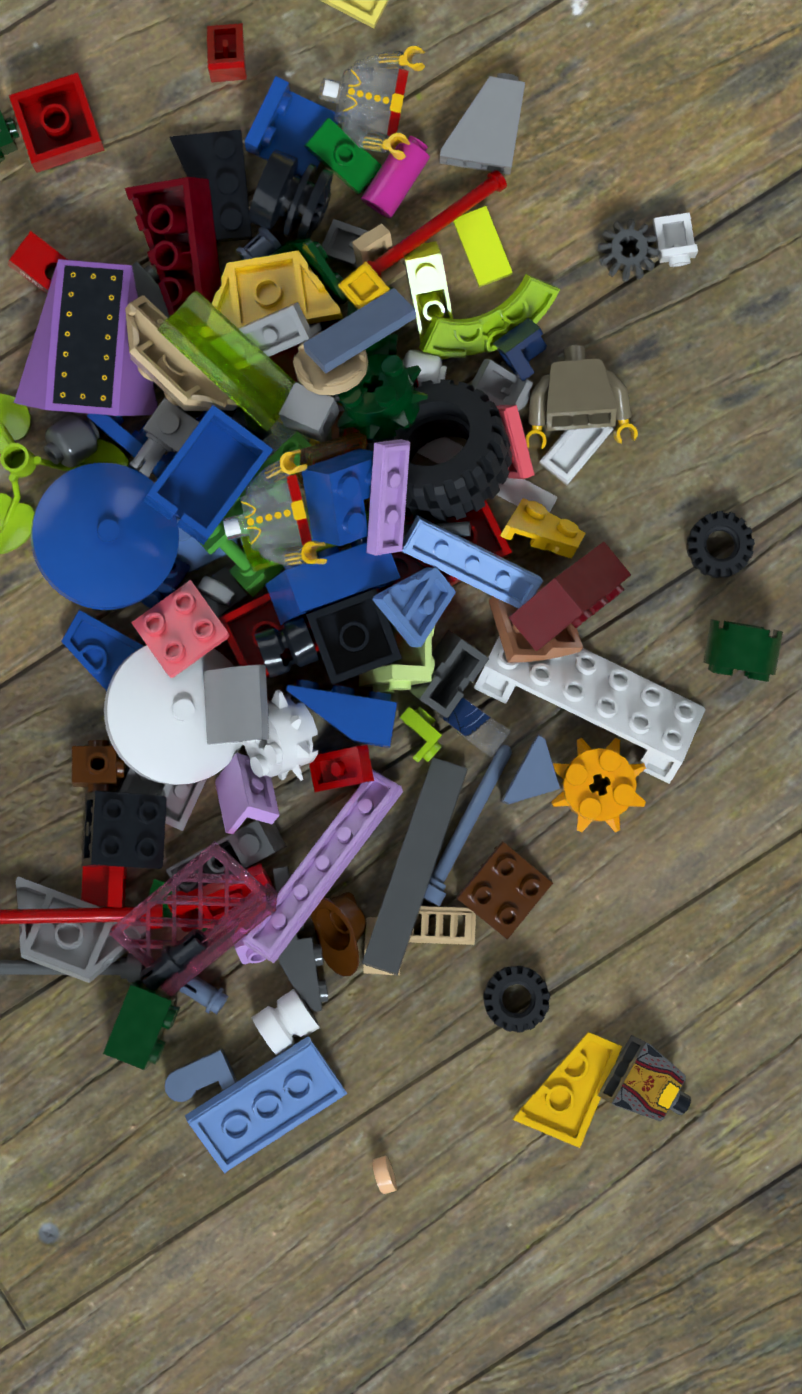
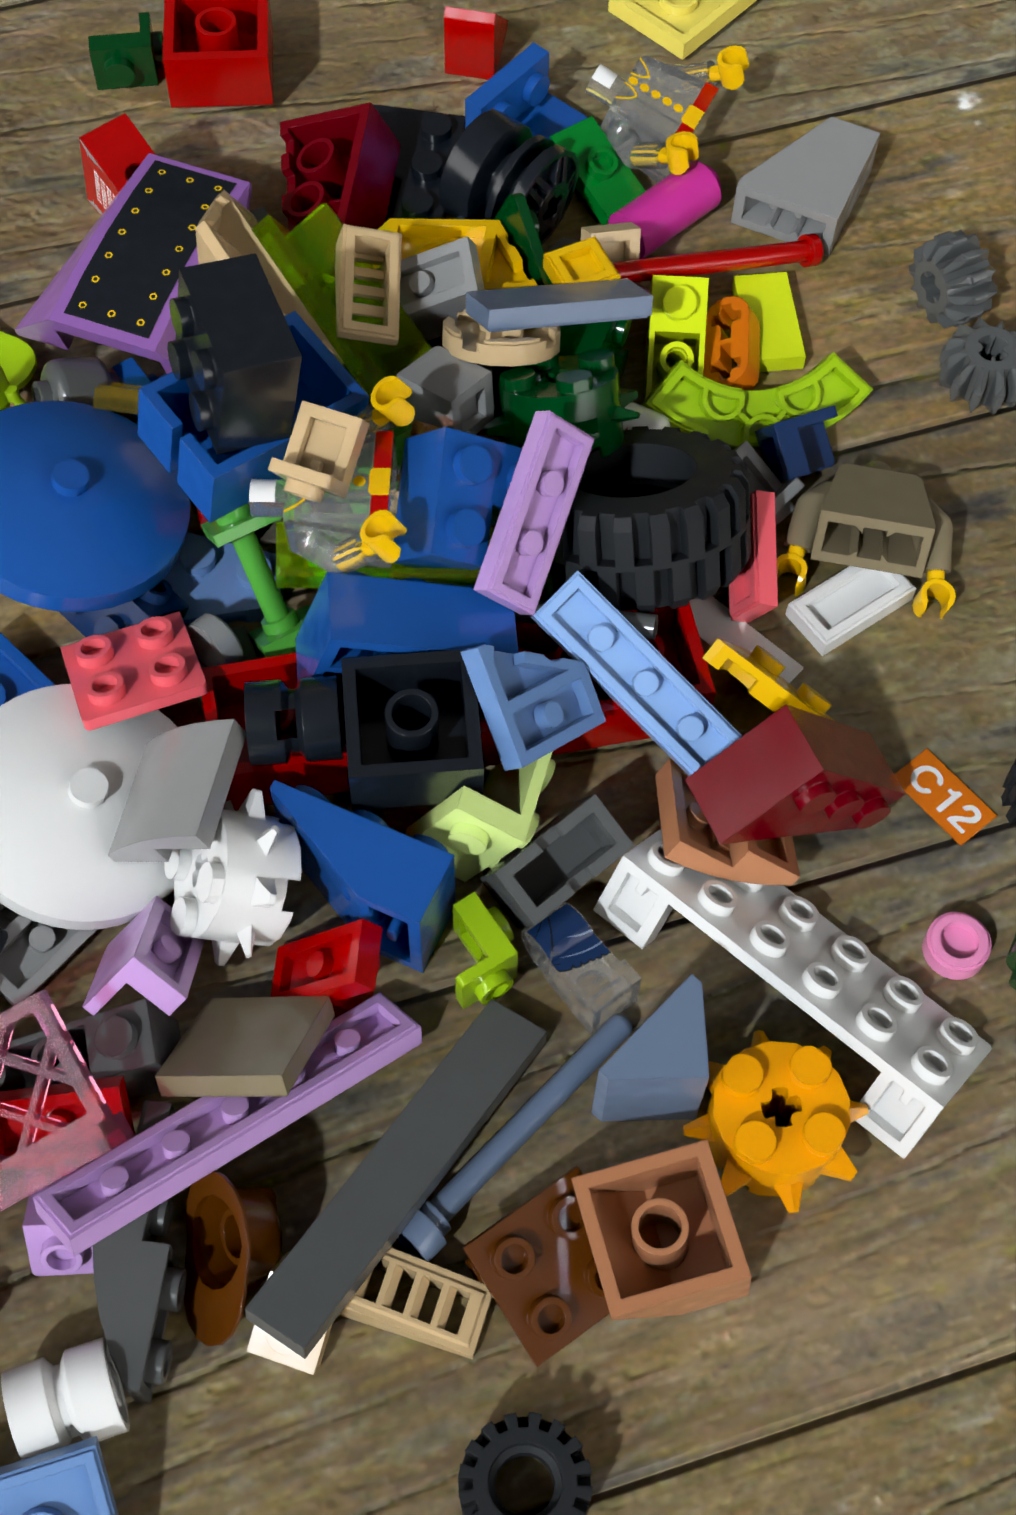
camera: 15 degrees right, 25 degrees down
(111, 449) = (116, 397): none -> clear yellow tile
(201, 473) = (234, 353): none -> black brick
(256, 355) = (375, 248): none -> tan slope
(263, 512) = (321, 453): none -> tan bracket
(315, 825) = (246, 1047): none -> dark tan tile
(464, 281) = (742, 346): none -> orange beam
(553, 865) = (662, 1234): none -> nougat slope
(594, 192) = (953, 278): none -> dark grey gear
(654, 560) = (944, 797): none -> orange sticker
(676, 654) = (956, 945): none -> bright pink tile

